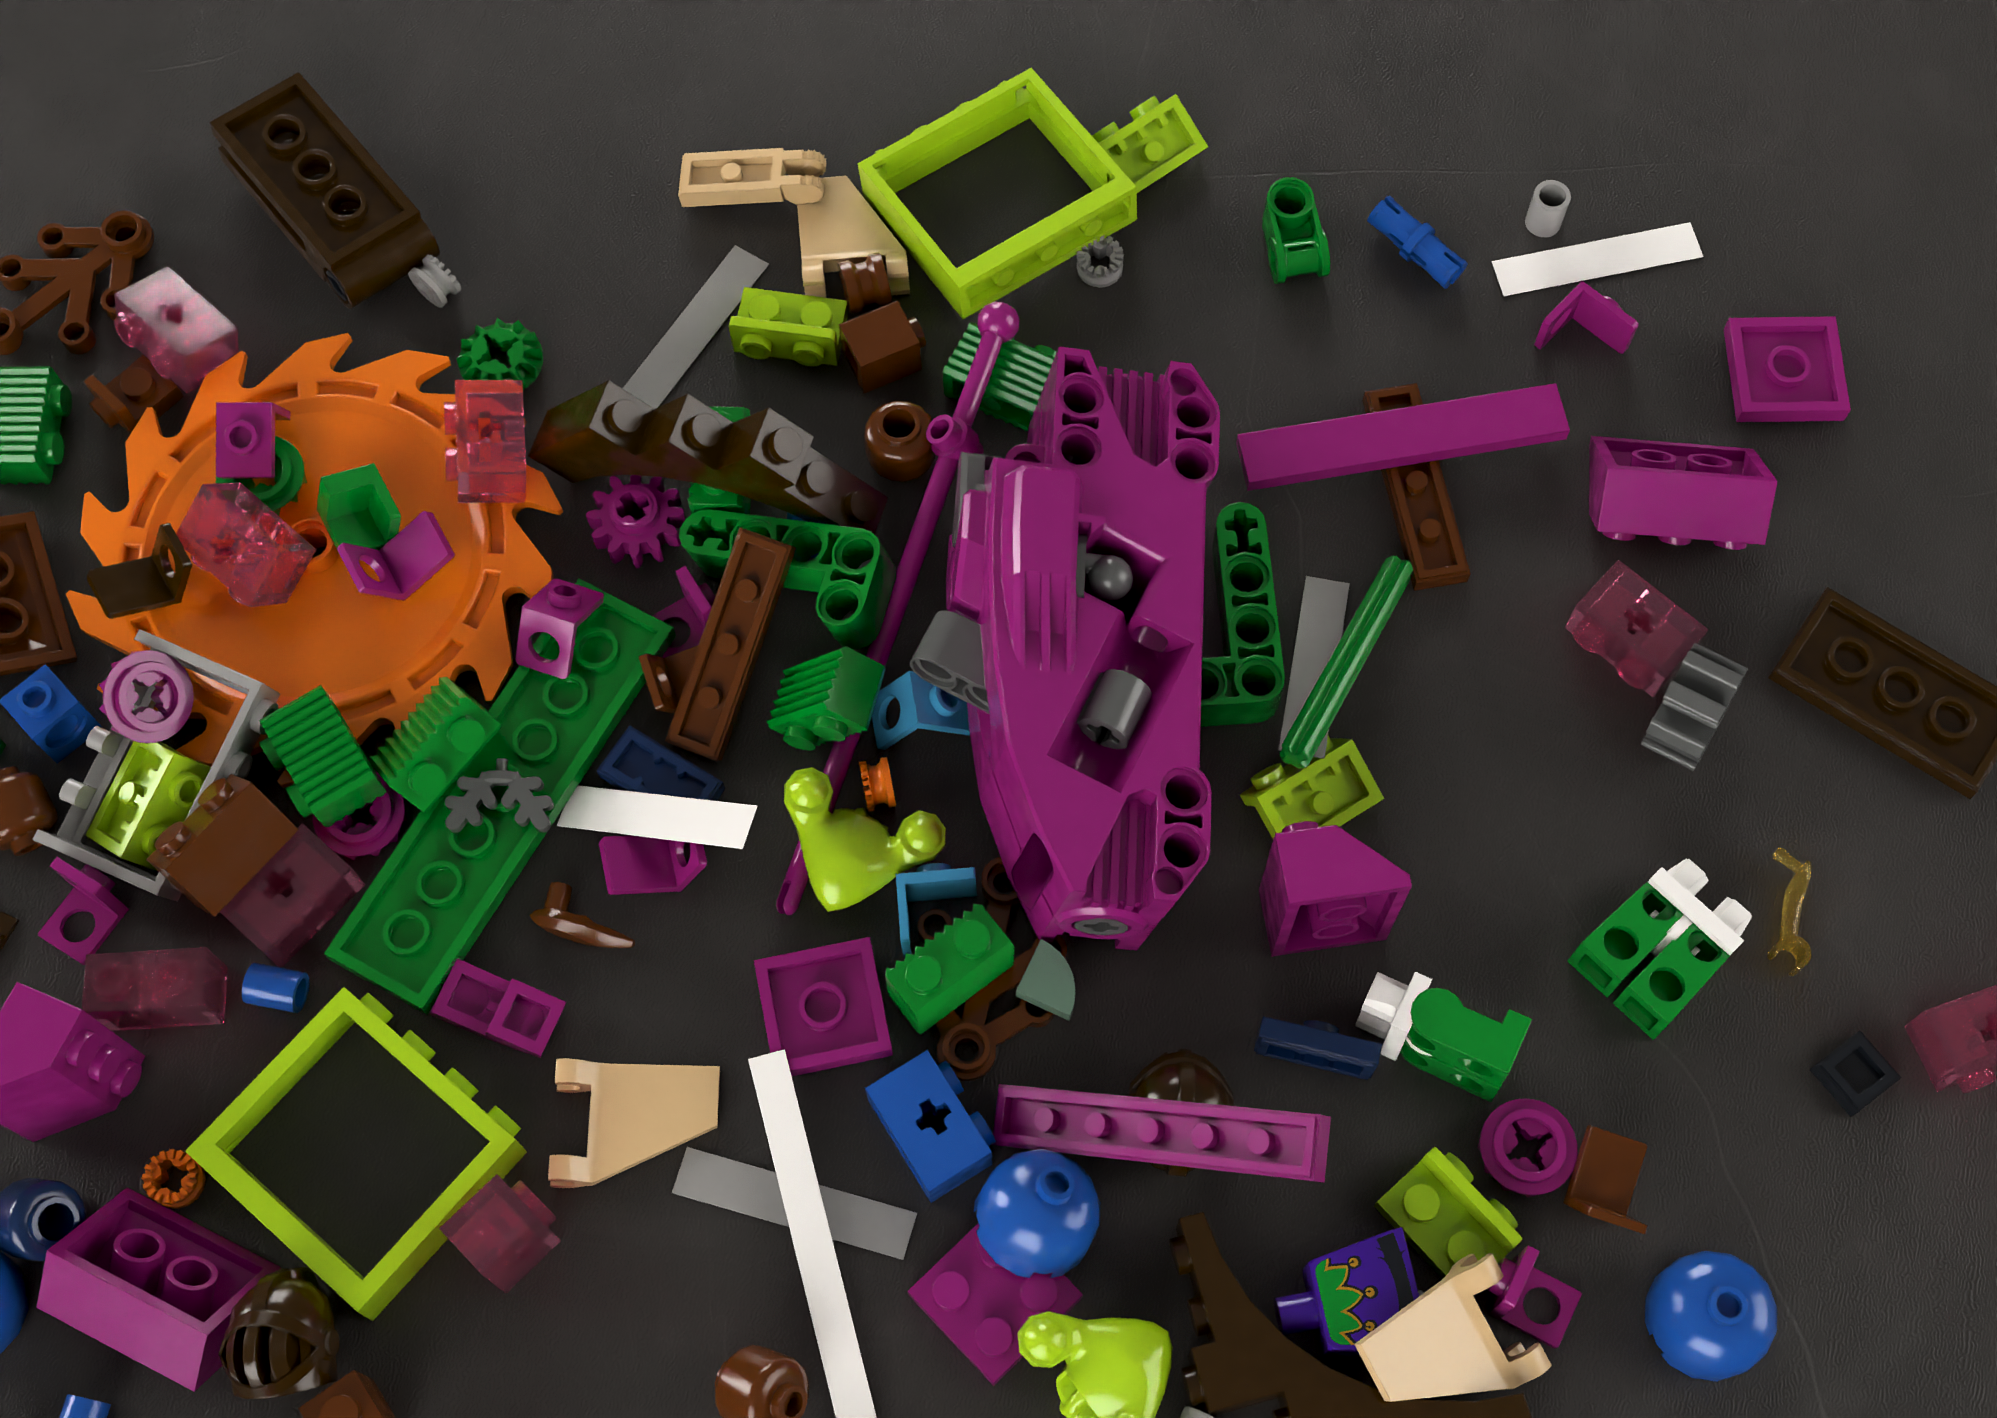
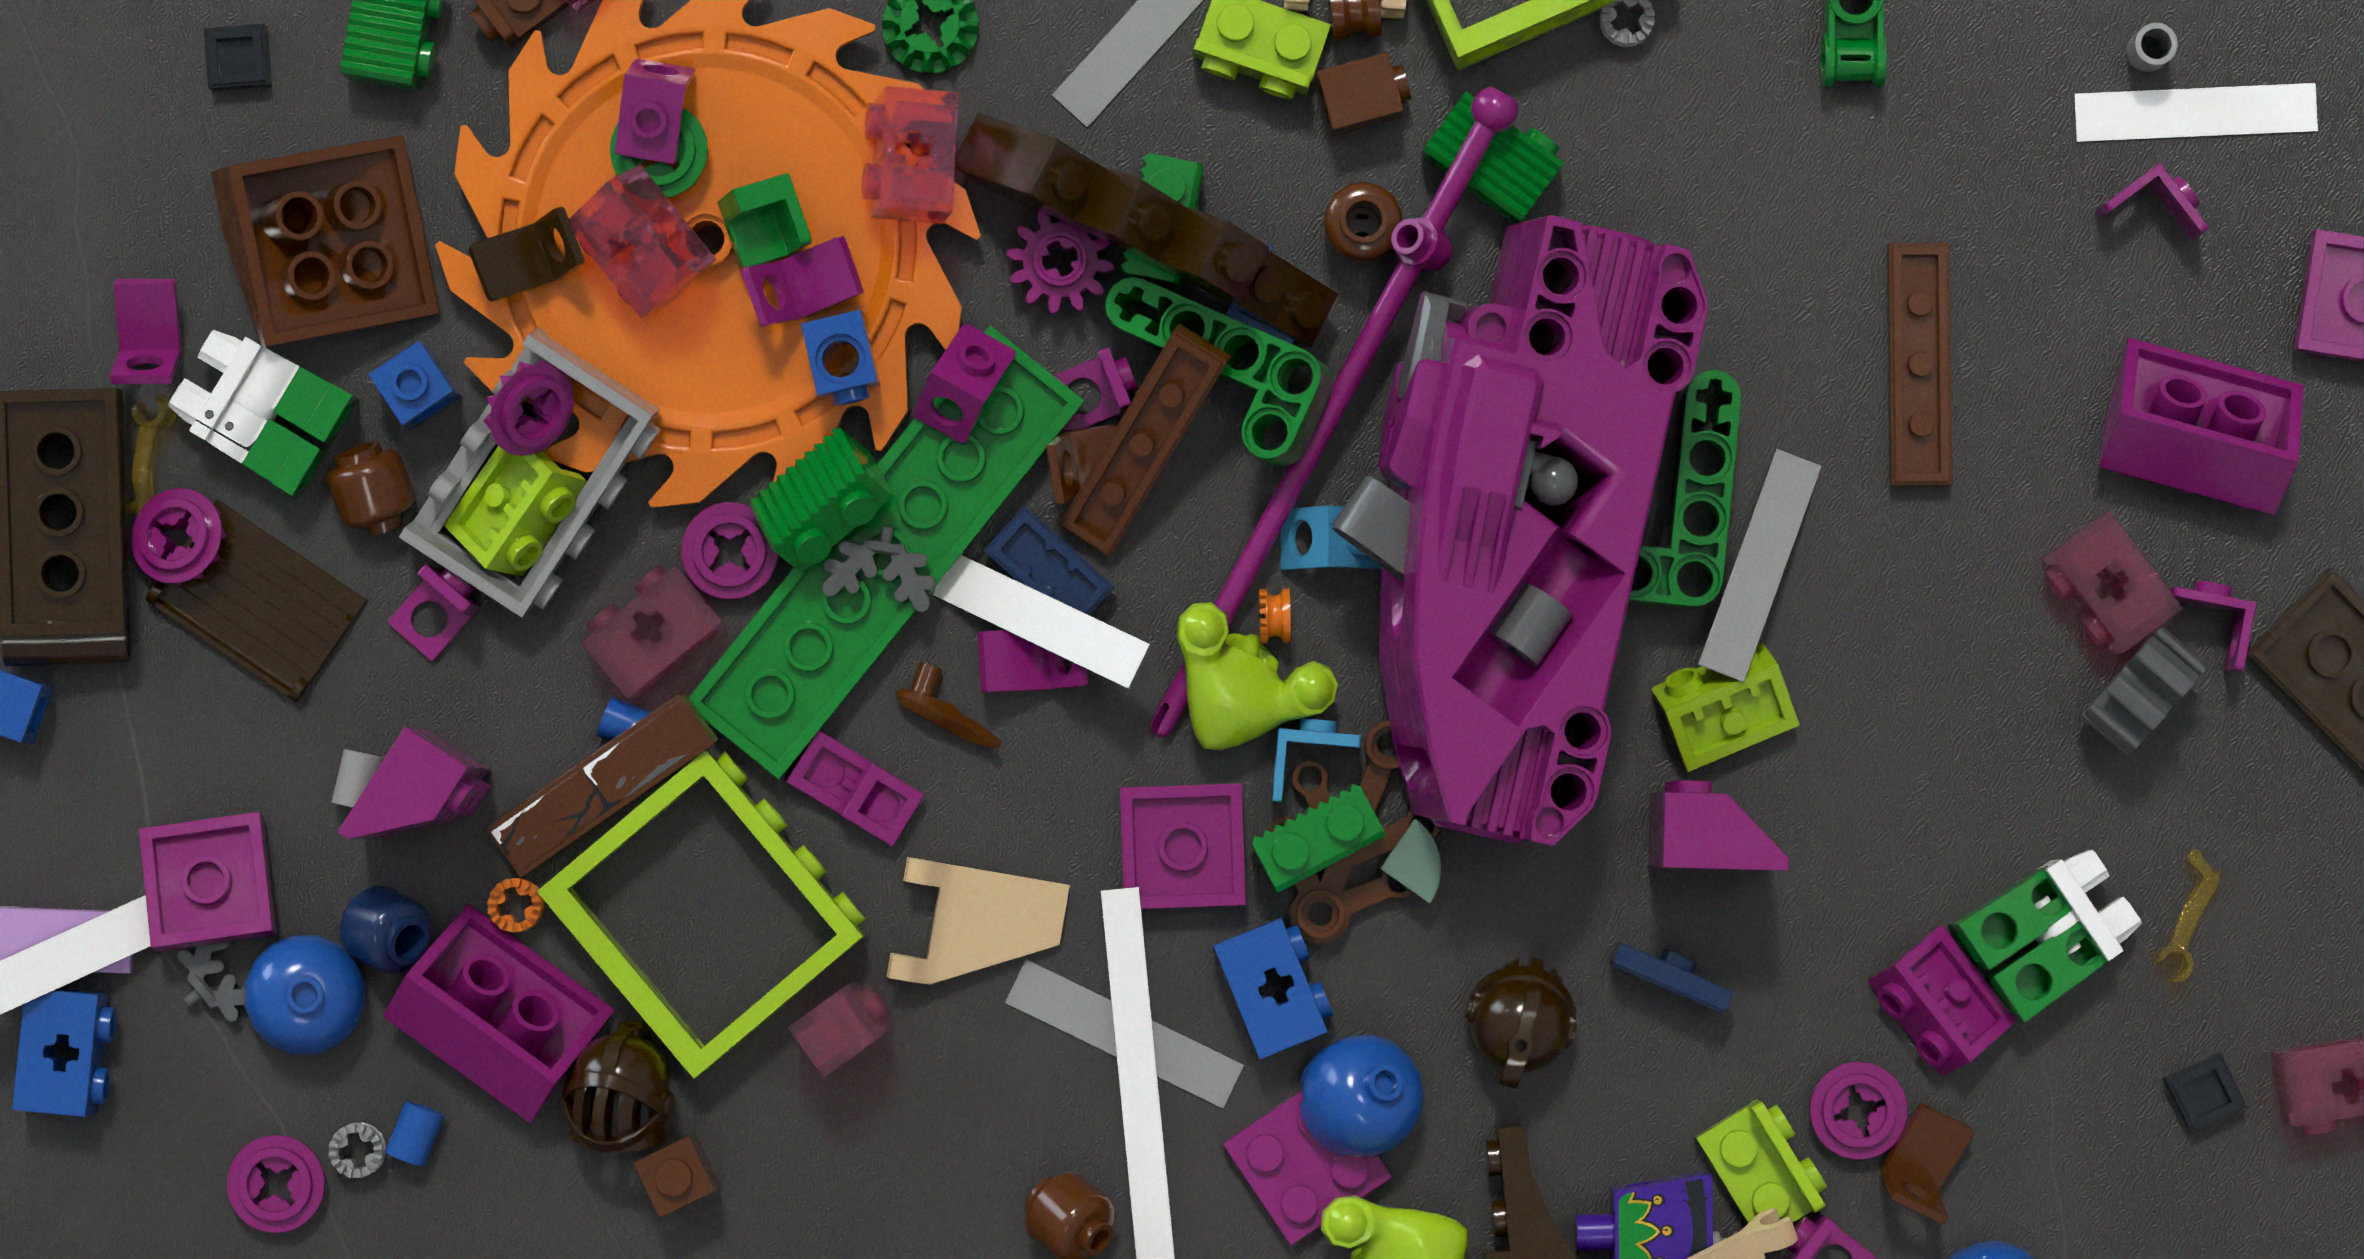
camera: 10 degrees right, 20 degrees up
(155, 988) = (511, 711): clear pink brick -> none
(221, 843) = (595, 579): reddish brown brick -> none
(245, 1042) = (601, 783): none -> reddish brown tile
(321, 757) = (700, 495): green brick -> none
(428, 597) = (828, 332): none -> blue brick
(826, 698) = (1235, 524): green brick -> none
(1164, 1132) = (1492, 1053): magenta tile -> none
(1346, 663) = (1794, 571): green axle -> none
(1402, 436) = (1915, 313): magenta tile -> none
(1417, 242) = (1992, 62): blue pin -> none
(1442, 1034) = (1795, 993): green hips -> none
(1583, 1029) = (1942, 1002): none -> magenta bracket
(1738, 627) = (2219, 597): none -> magenta bracket

